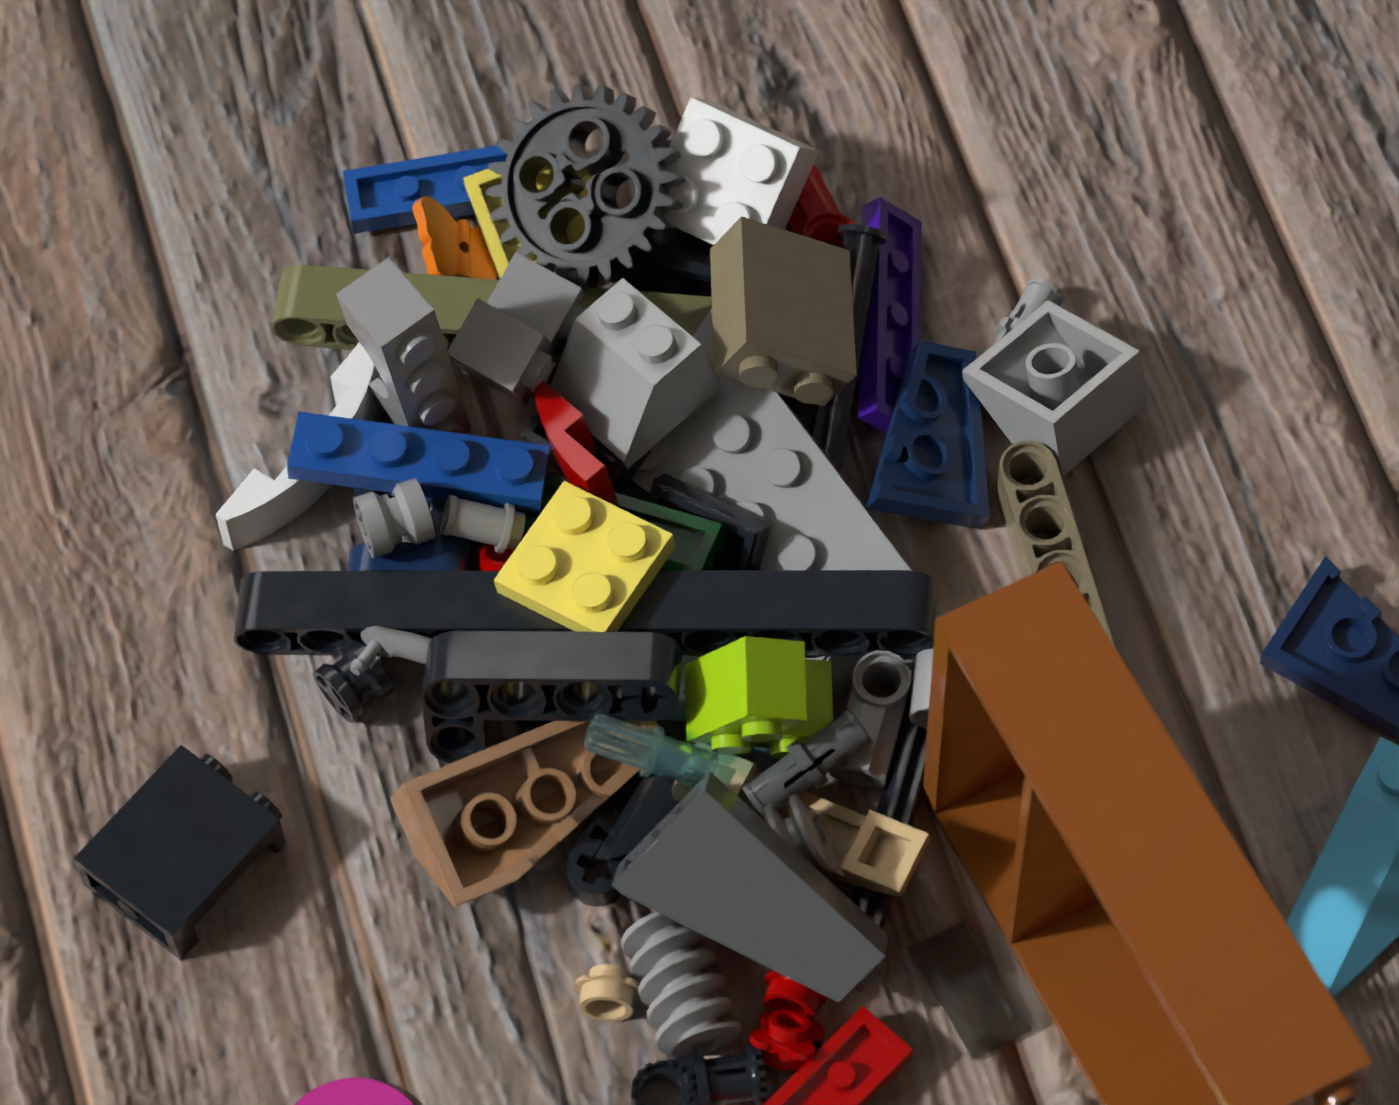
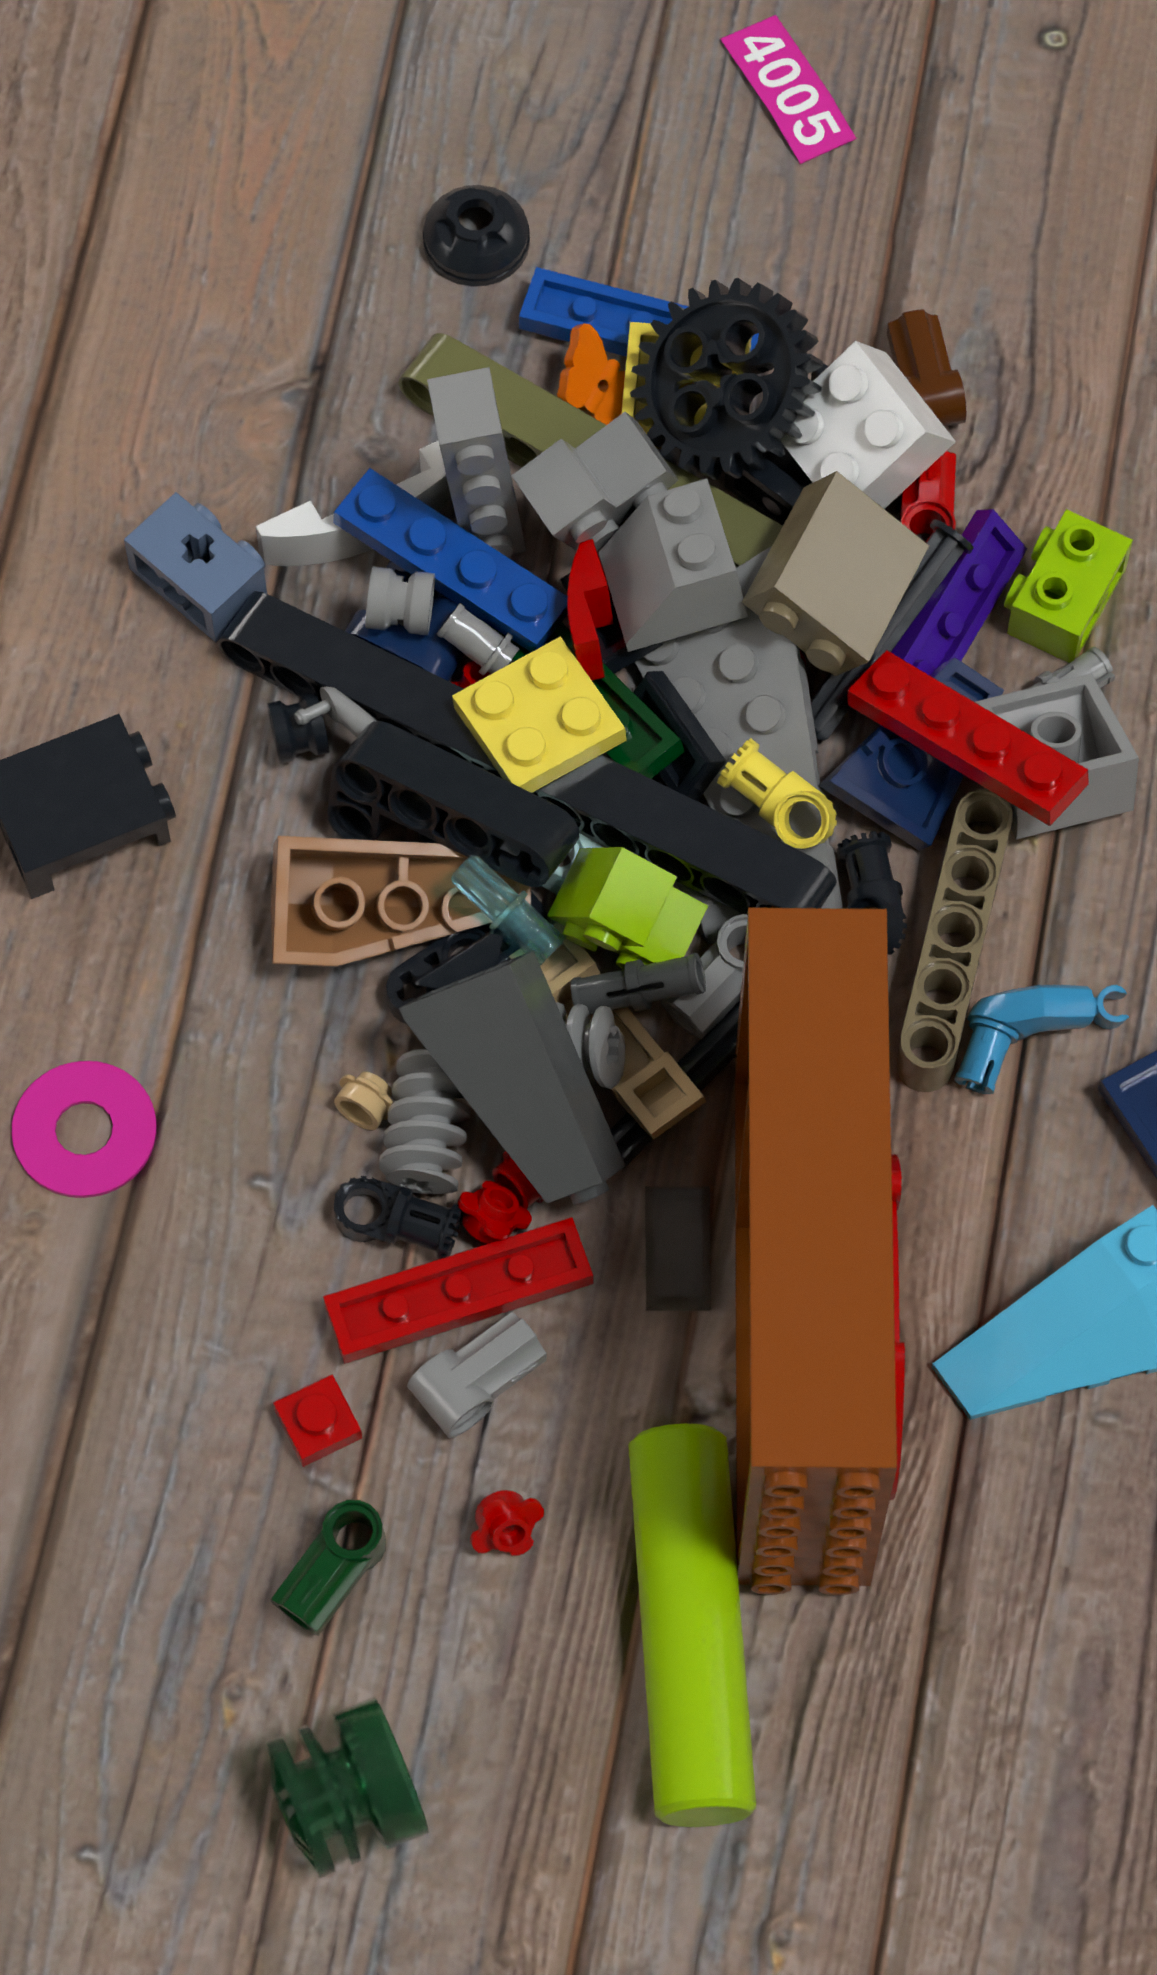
camera: 25 degrees right, 5 degrees up
(173, 578) = (195, 564): none -> sand blue brick
(271, 188) = (476, 255): none -> black piece
(729, 85) = (923, 359): none -> reddish brown piece
(843, 532) = (776, 794): none -> light yellow connector
(952, 568) = (873, 881): none -> black connector
(978, 236) = (1068, 585): none -> lime brick
(981, 401) = (968, 738): none -> red plate
(1163, 621) = (1021, 1013): none -> dark azure arm

